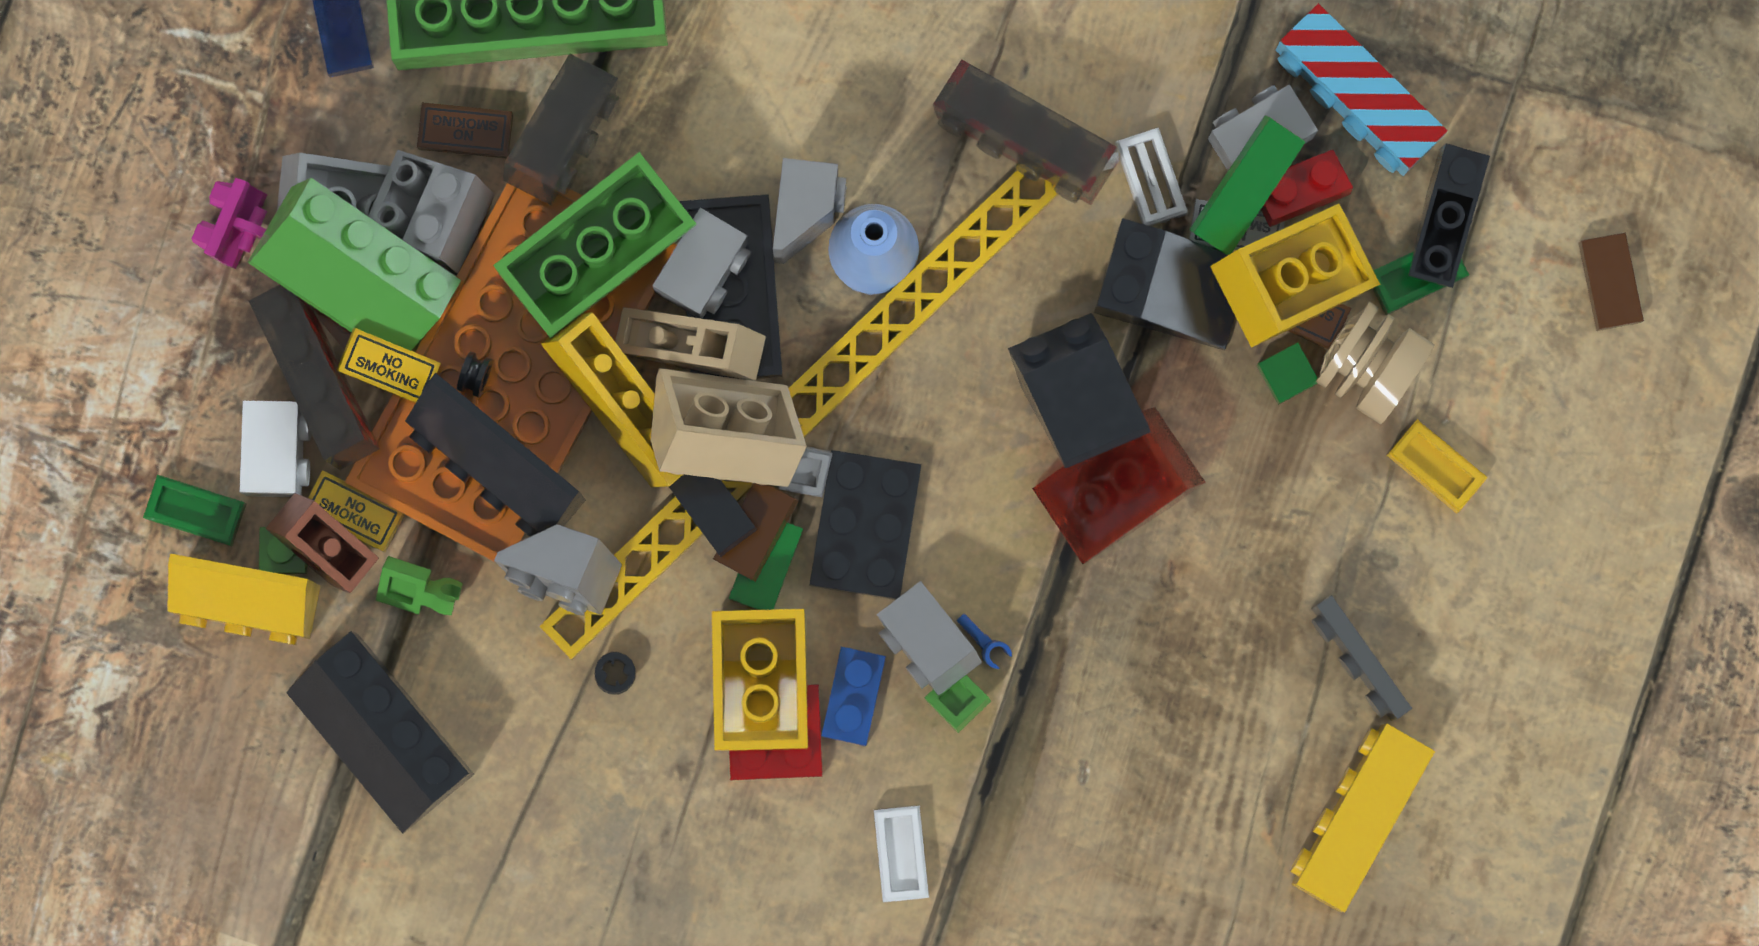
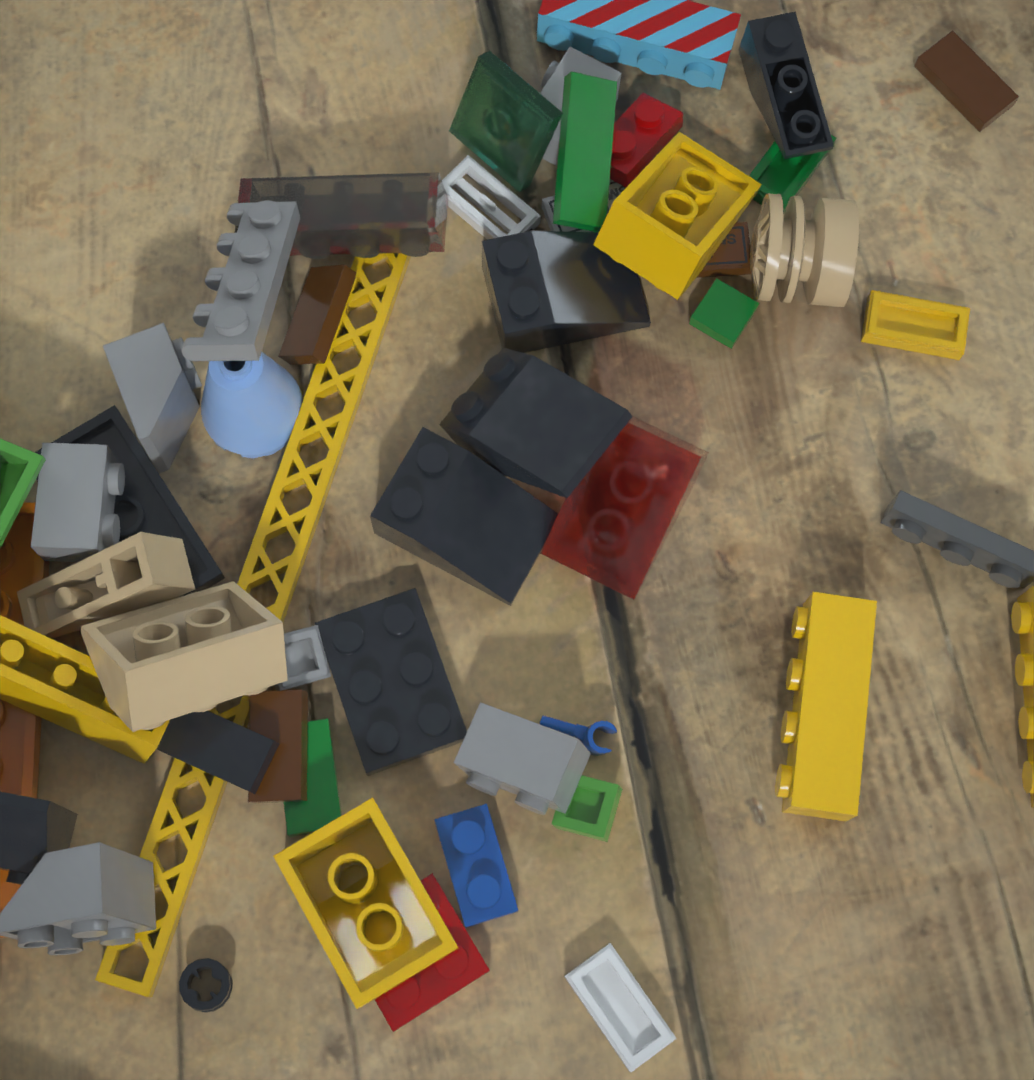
camera: 30 degrees left, 10 degrees down
(918, 166) = (248, 283): none -> light grey hinge
(963, 202) = (317, 314): none -> reddish brown tile
(988, 431) = (463, 517): none -> black slope
(1180, 725) = (828, 707): none -> yellow brick
(1198, 122) = (505, 121): none -> clear green tile

